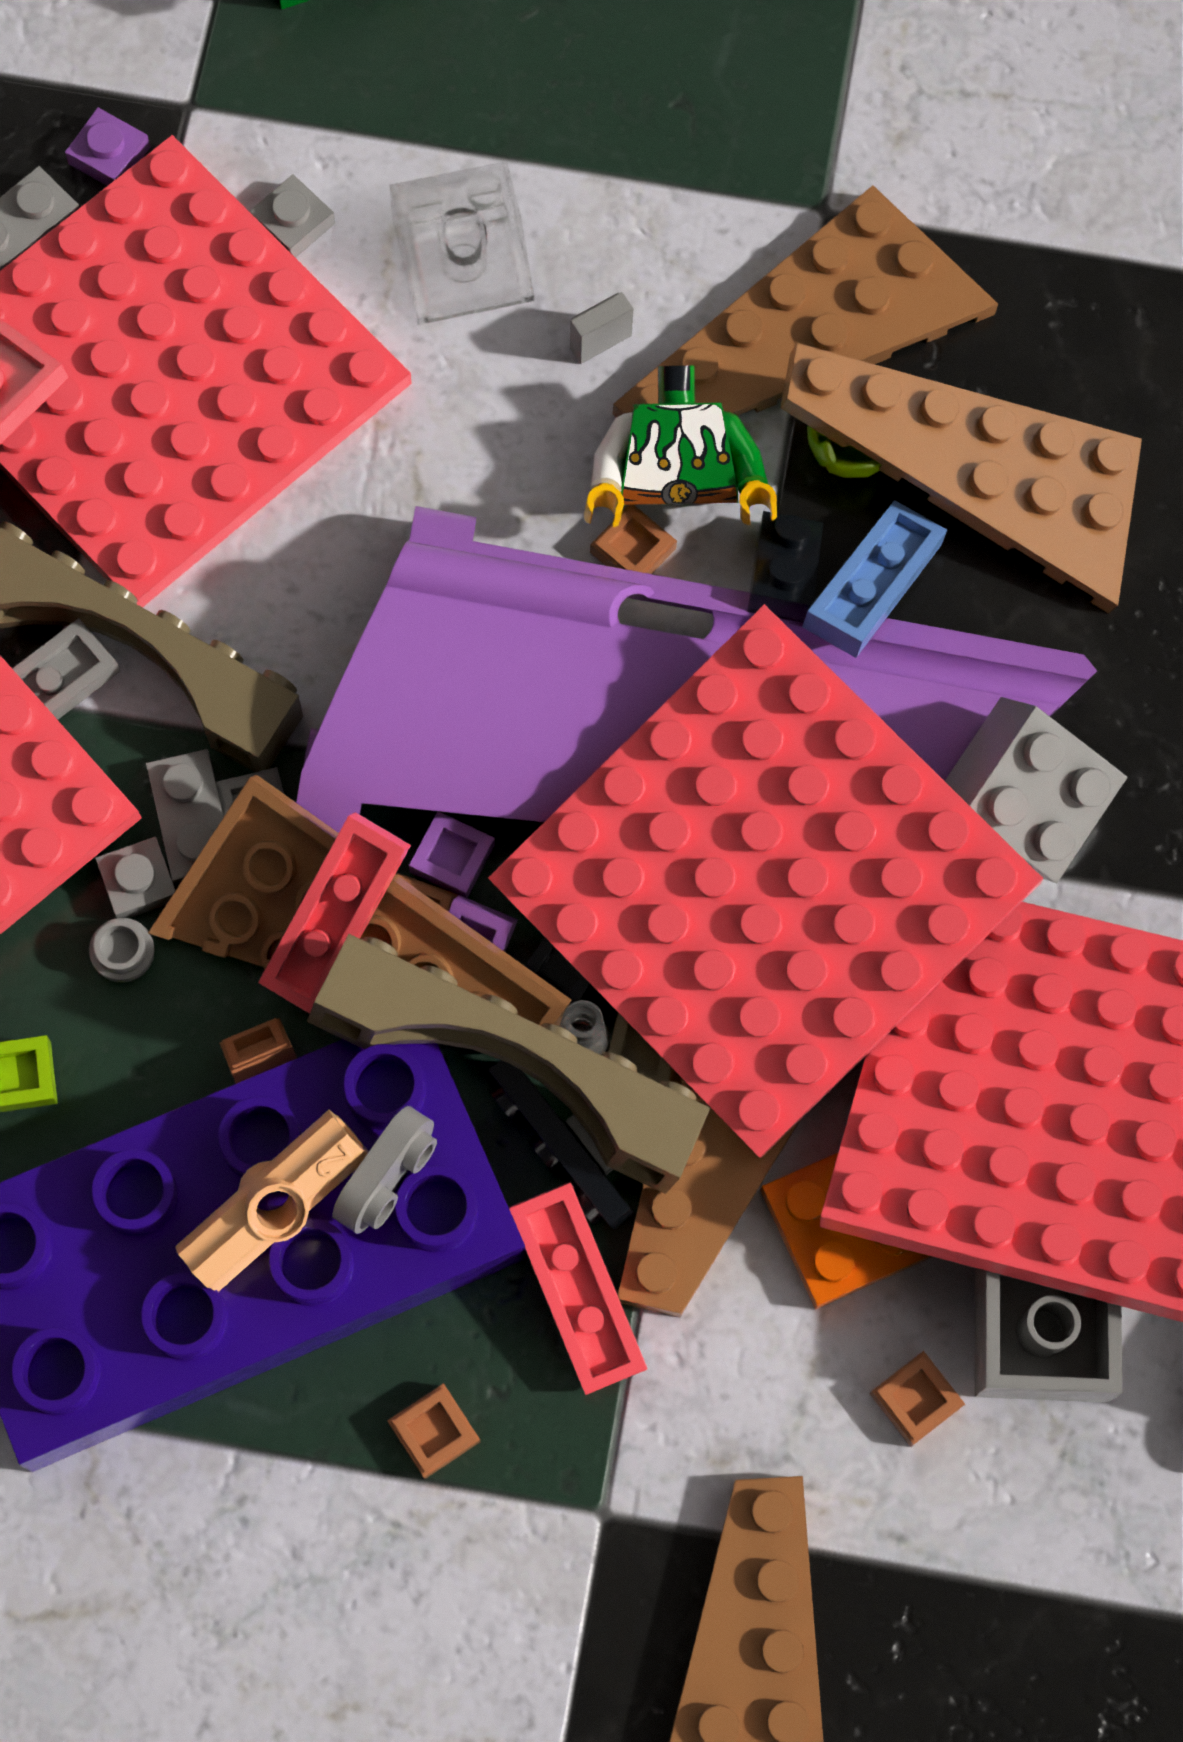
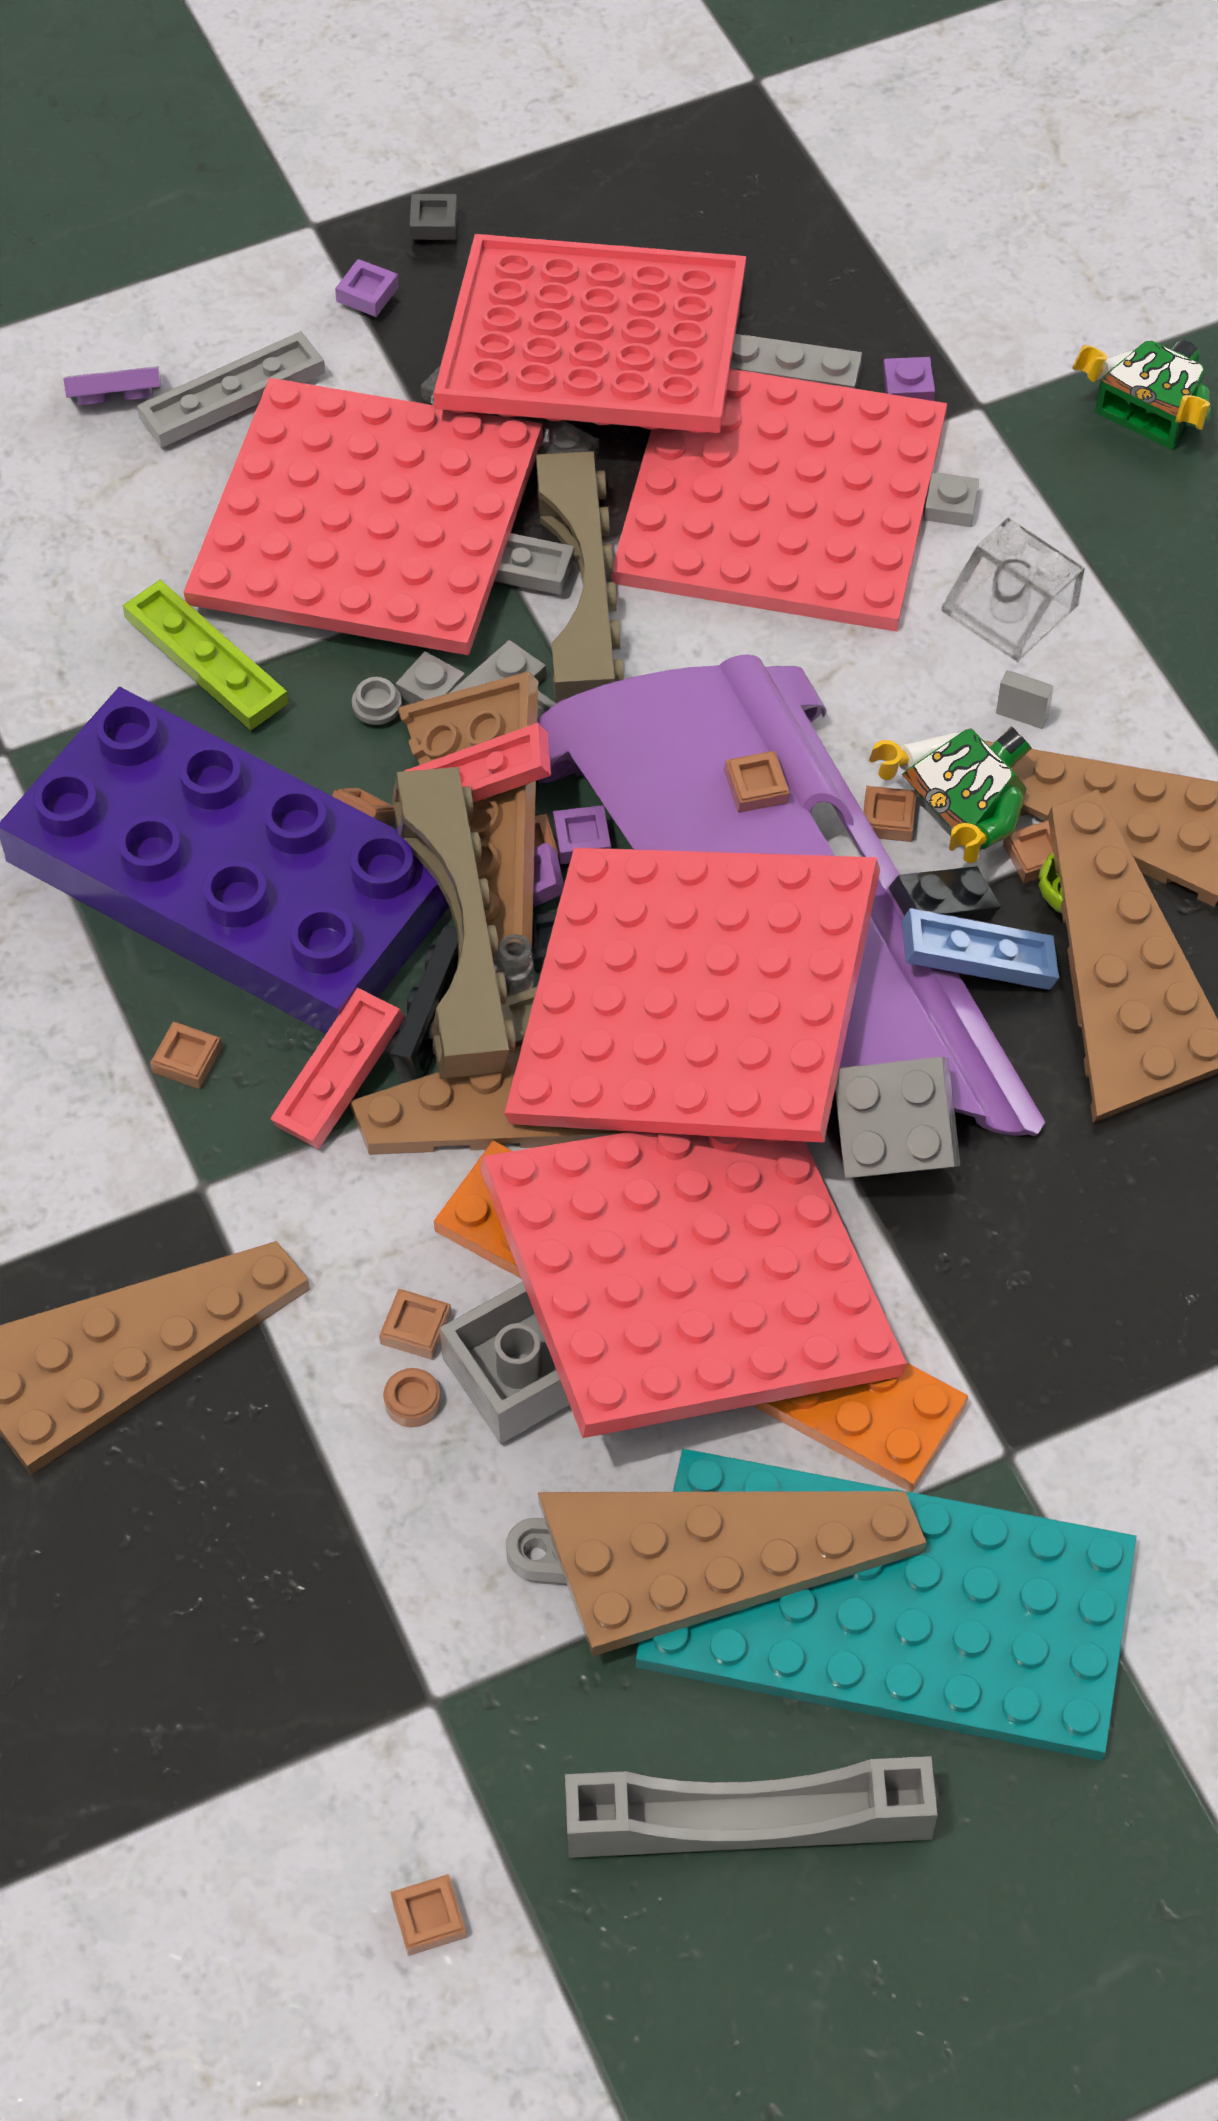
camera: 60 degrees right, 15 degrees down
(242, 1231) = (281, 840): light nougat piece -> none
(370, 1191) = (318, 882): light grey plate -> none
(559, 649) = (756, 781): none -> nougat tile
(780, 441) = (1029, 849): none -> nougat tile
(998, 1455) = (412, 1397): none -> nougat tile

